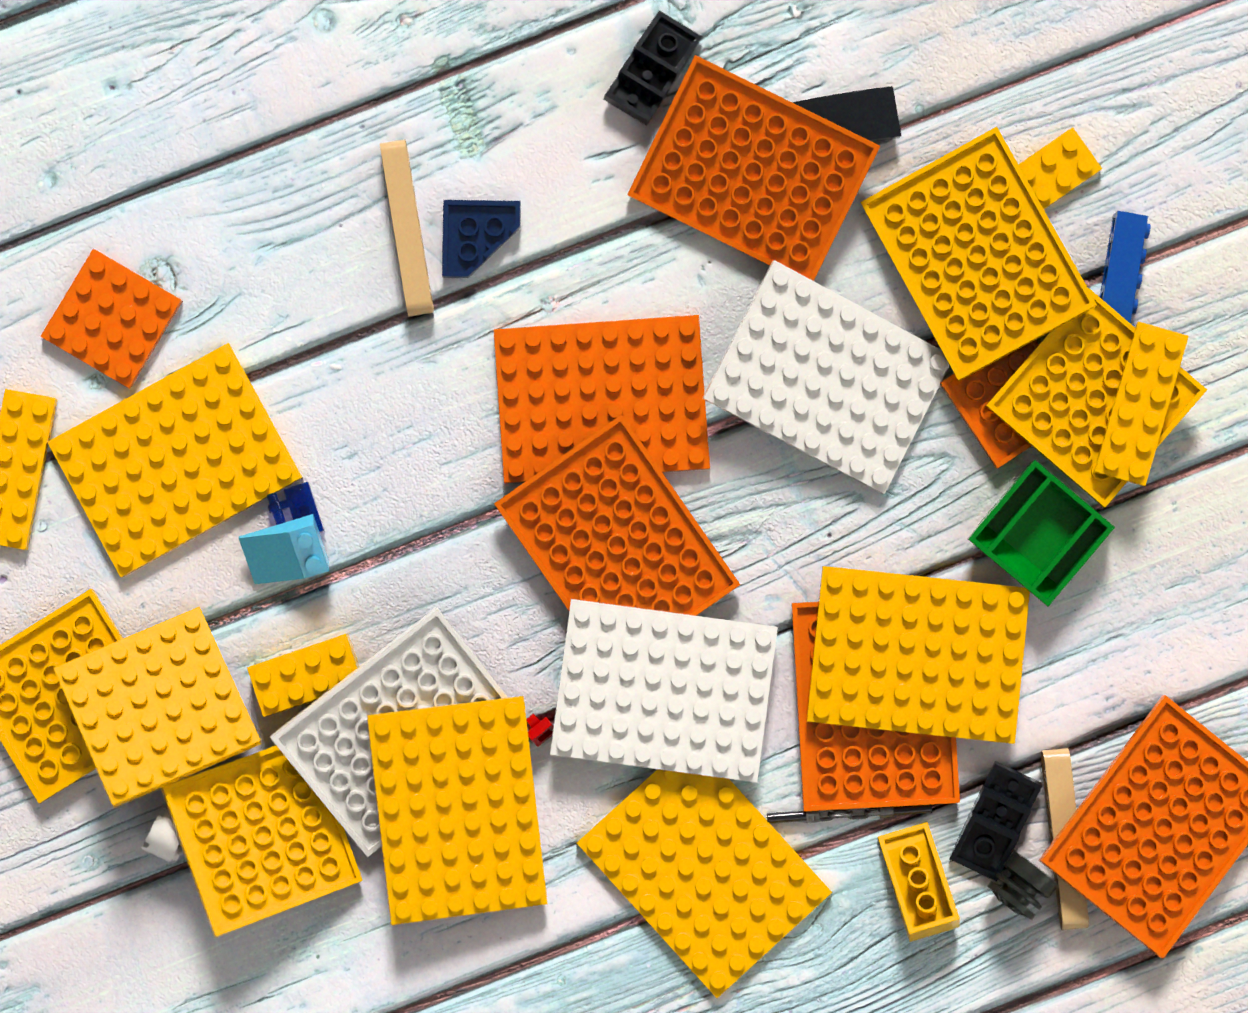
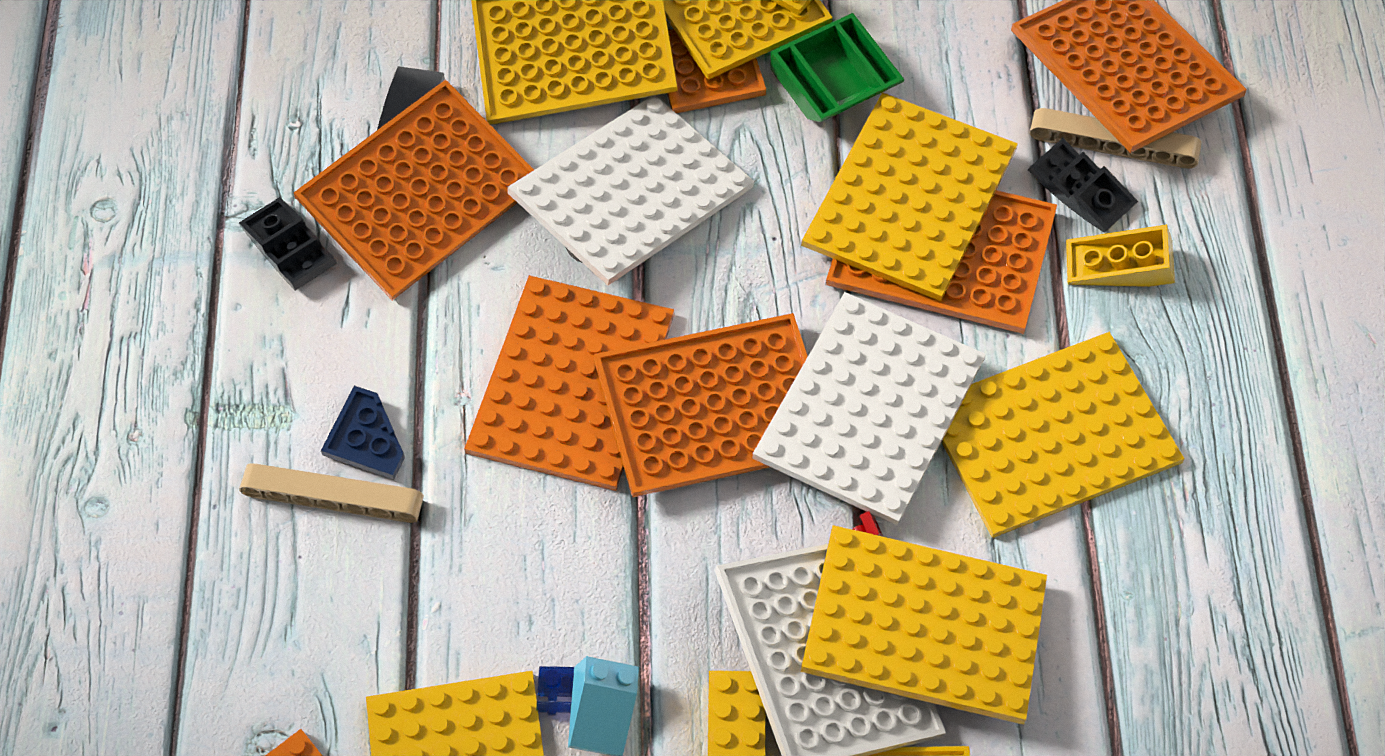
camera: 70 degrees left, 25 degrees down
(814, 816) = (1032, 324): piece -> none
(1022, 885) = (1149, 174): pearl dark grey wheel -> none

